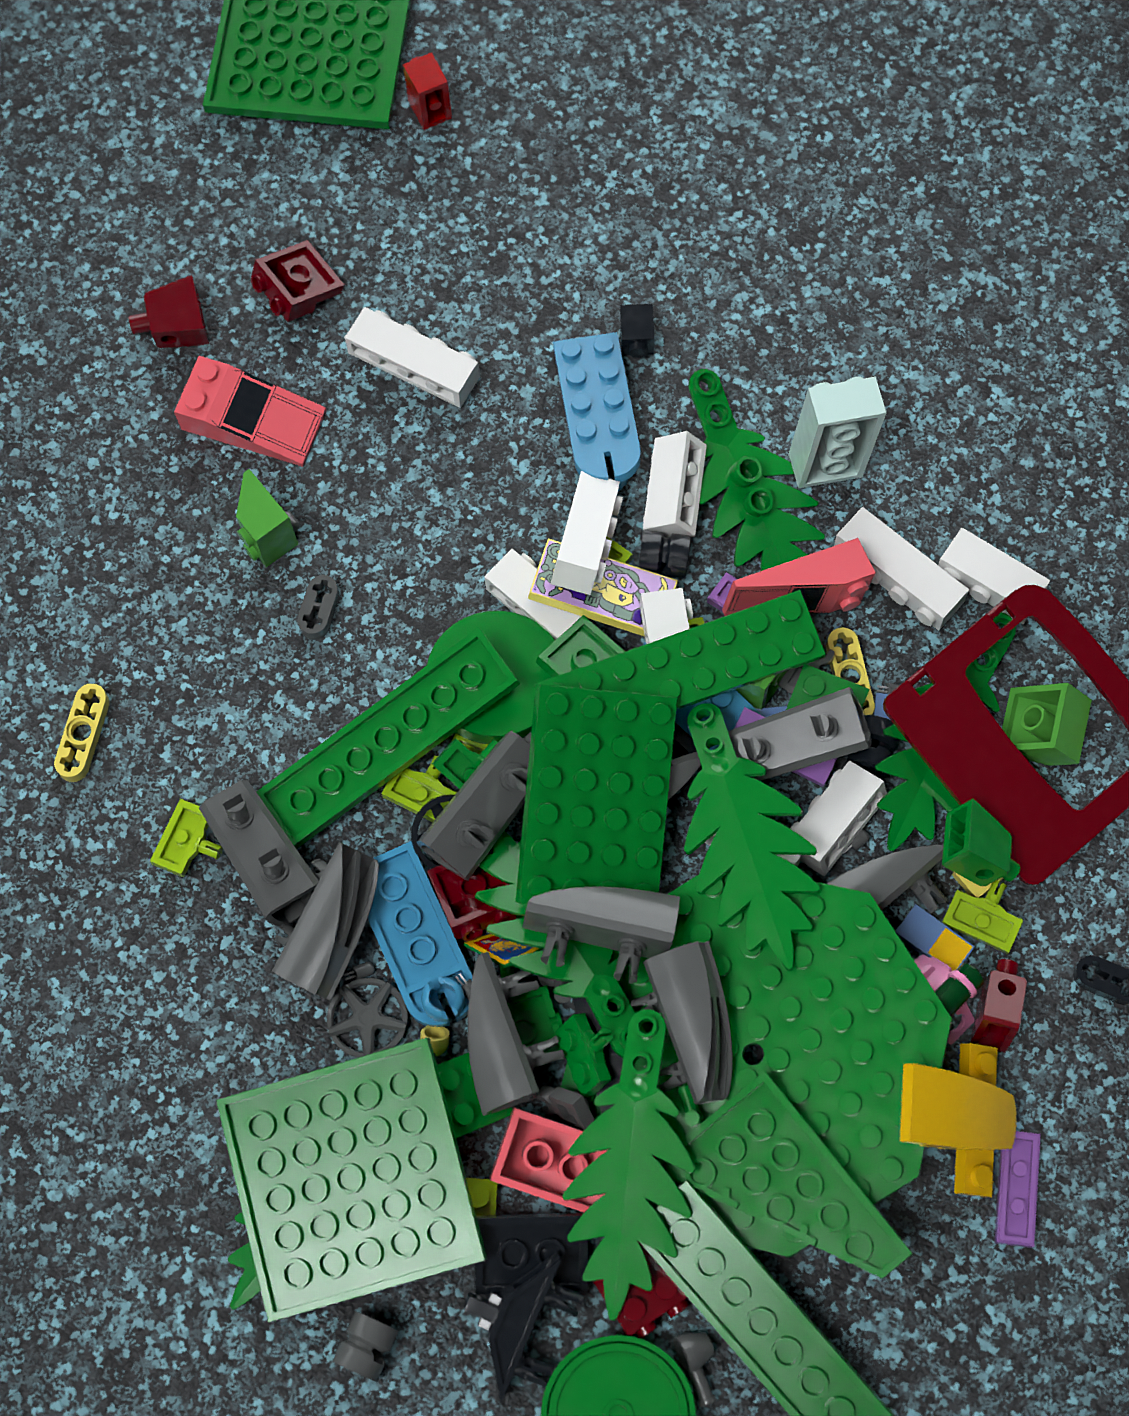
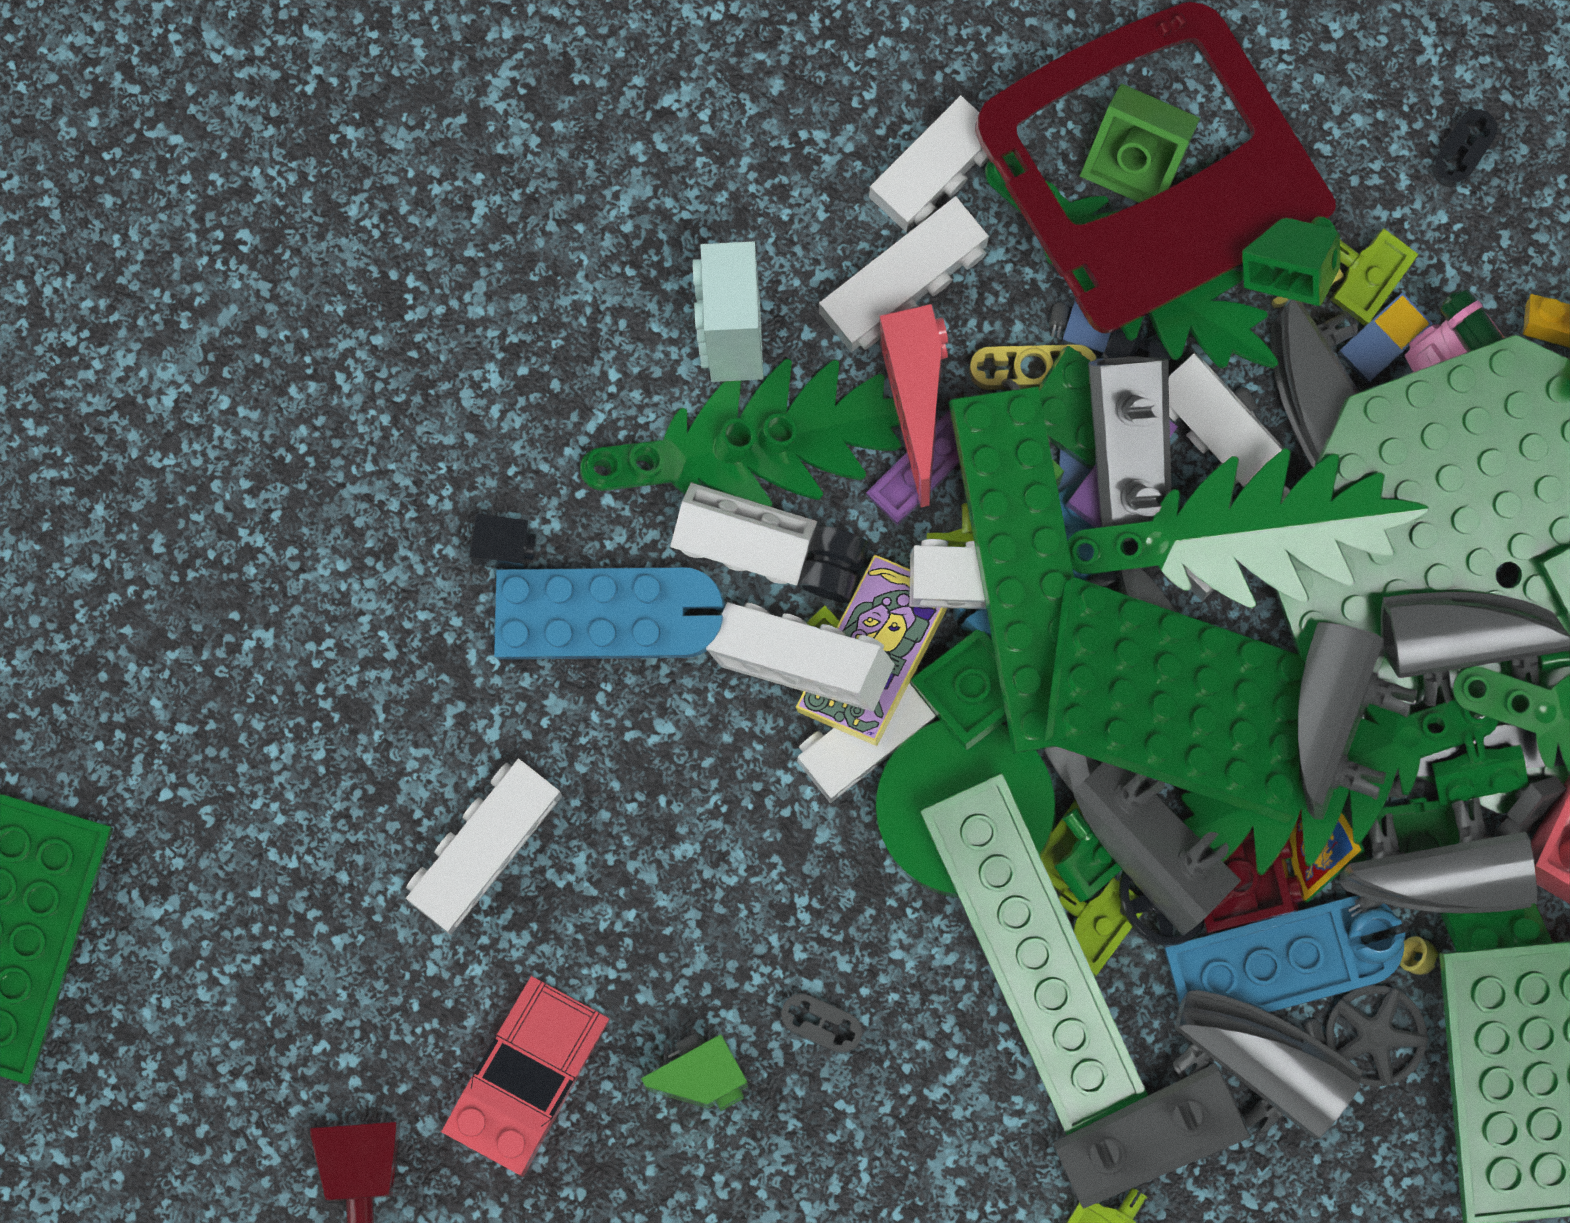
camera: 85 degrees left, 10 degrees up
(295, 280) = (336, 989): dark red plate -> none
(427, 91) = (79, 762): red brick -> none
(999, 1007) = (1489, 274): dark red torso -> none

